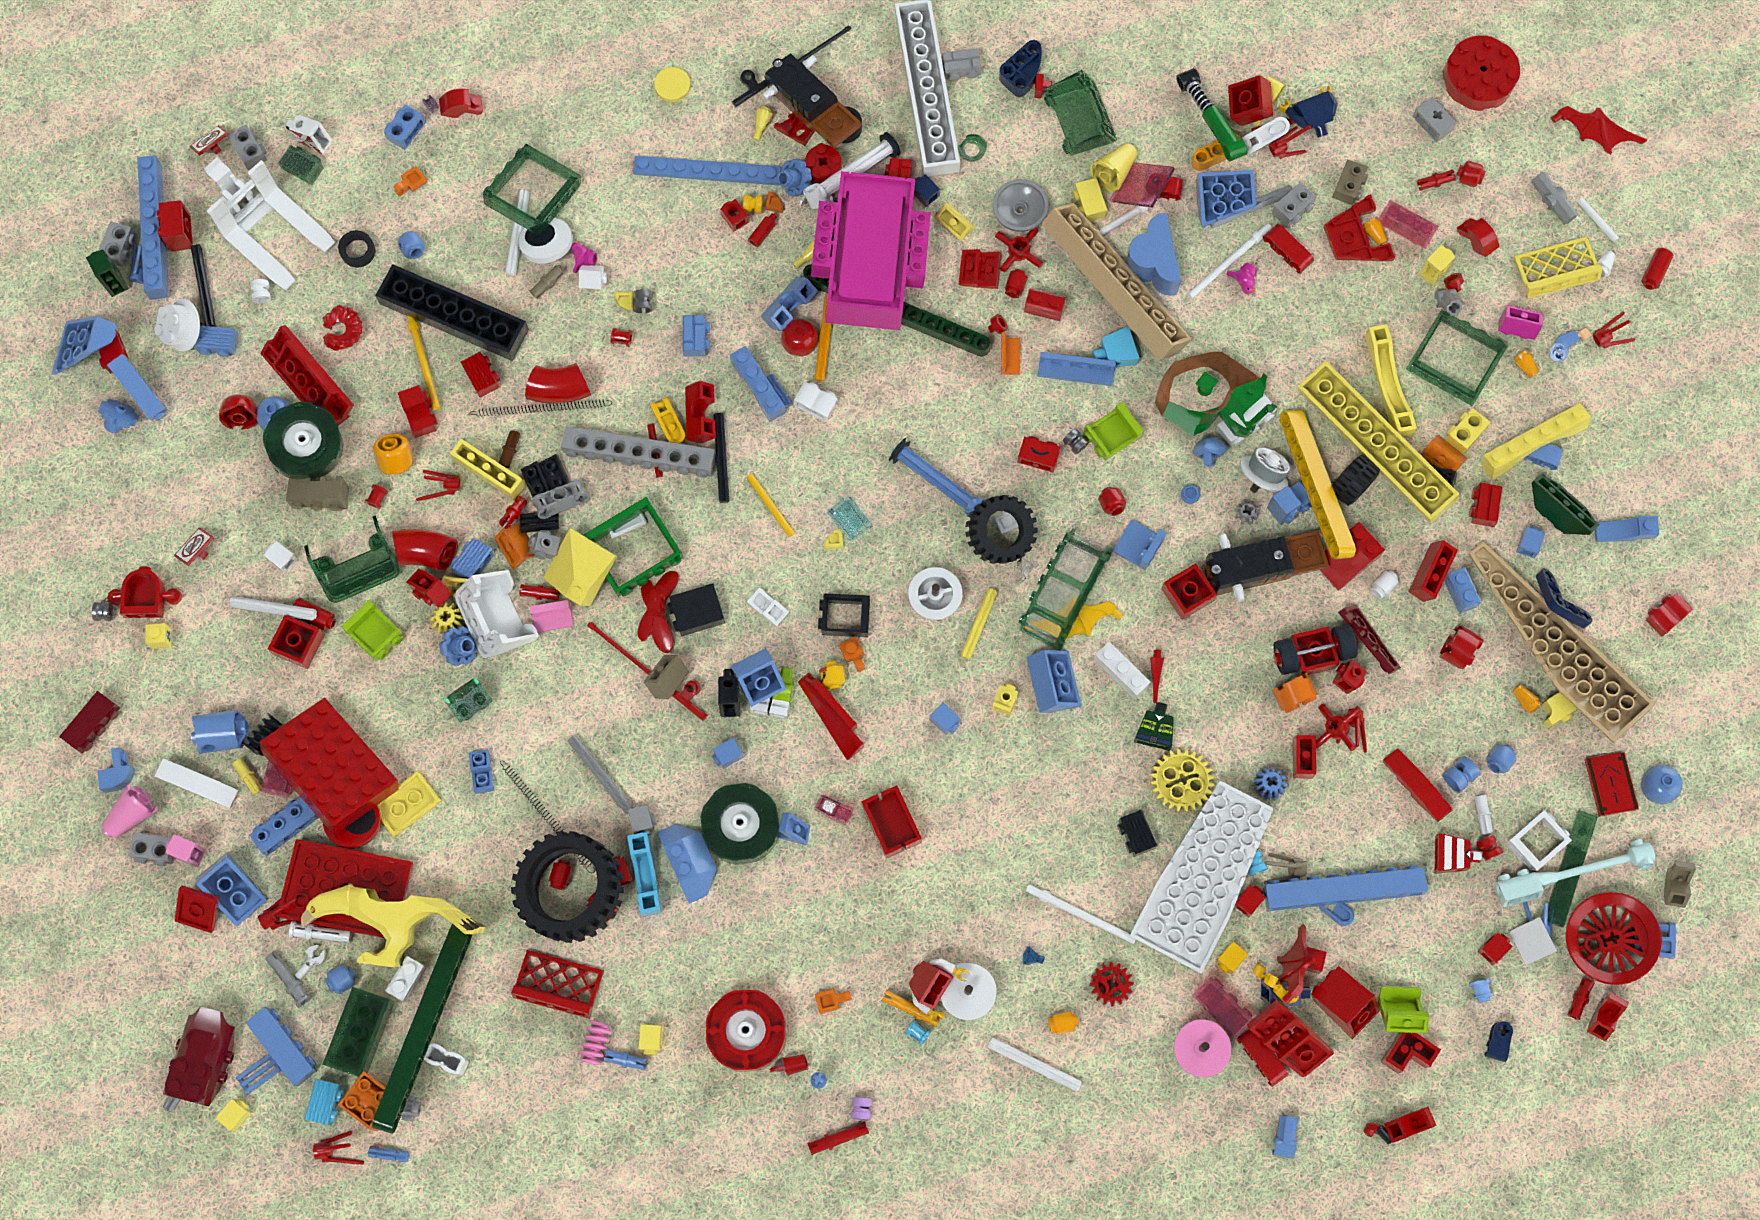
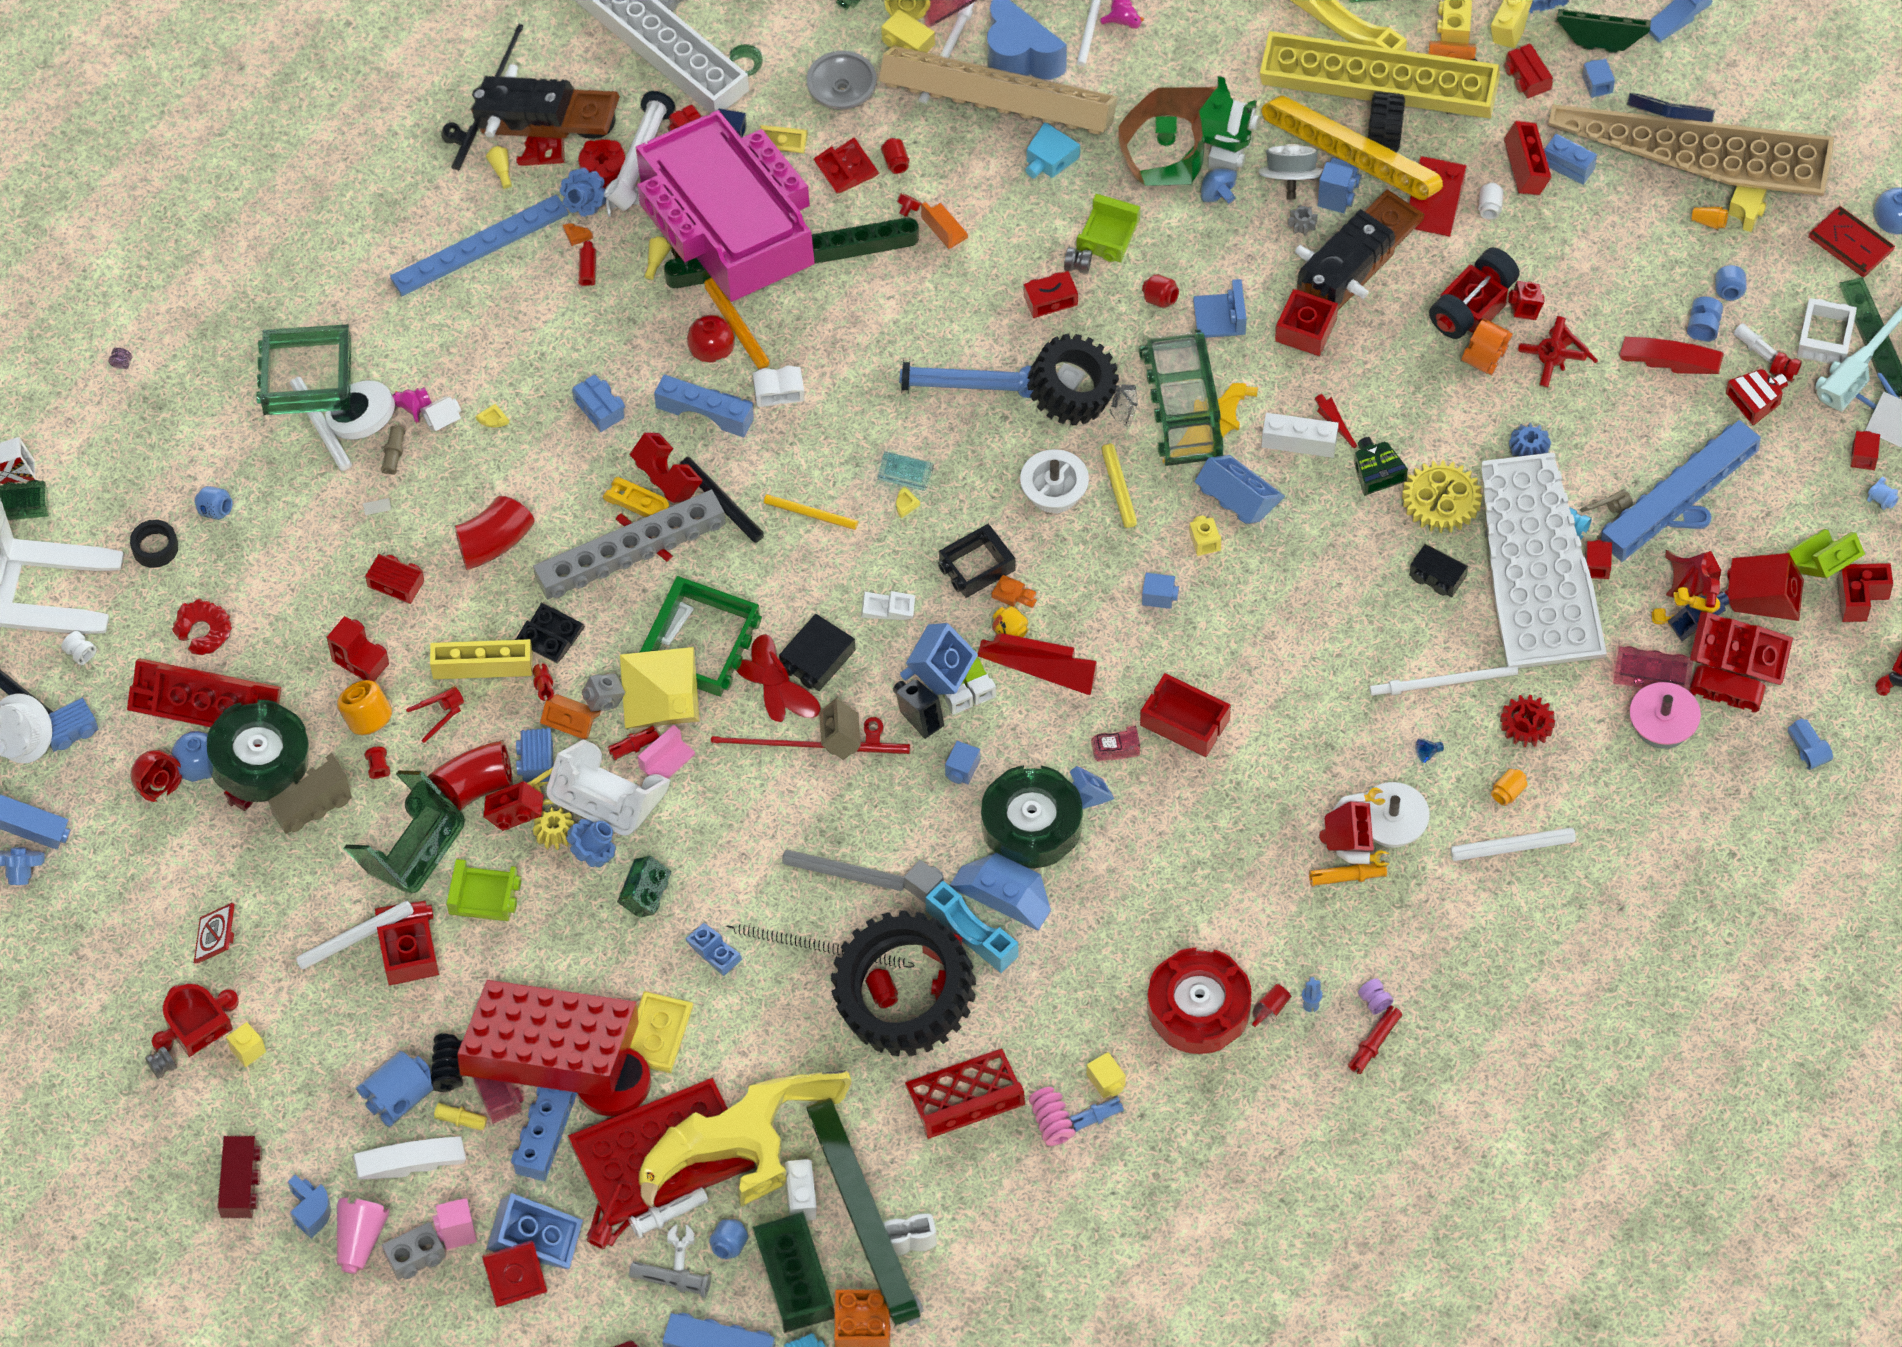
camera: 35 degrees left, 15 degrees down
(280, 556) = (318, 884): white brick -> none
(408, 128) = (112, 396): medium blue brick -> none
(410, 180) = (159, 442): orange plate -> none
(414, 328) = (281, 581): yellow bar -> none
(452, 312) = (315, 536): black brick -> none
(458, 101) = (152, 336): red brick -> none
(509, 449) = (485, 628): reddish brown axle -> none
(532, 518) = (576, 677): black tile -> none
(540, 408) = (482, 572): black piece -> none
(560, 499) = (583, 639): light grey piece -> none
(621, 337) = (519, 452): red bush -> none
(642, 300) = (513, 403): flat silver wheel -> none
(672, 84) = (373, 187): light yellow tile -> none
(737, 221) = (545, 266): red brick -> none
(753, 204) = (557, 245): yellow wheel -> none
(796, 293) = (671, 326): medium blue arch -> none
(828, 1000) = (1261, 921): orange plate -> none
(917, 1032) = (1373, 890): medium azure bush -> none
(1016, 243) = (872, 122): red bar -> none
(1044, 304) = (941, 156): red brick -> none
(1076, 368) = (1023, 196): medium blue fence -> none
(1190, 494) = (1232, 238): medium blue plate -> none
(1231, 958) = (1624, 621): yellow brick -> none
(1304, 756) = (1543, 397): red brick -> none
(1354, 617) = (1529, 260): dark red wing -> none
(1460, 647) = (1611, 207): red brick -> none
(1669, 614) = (1780, 60): red brick -> none

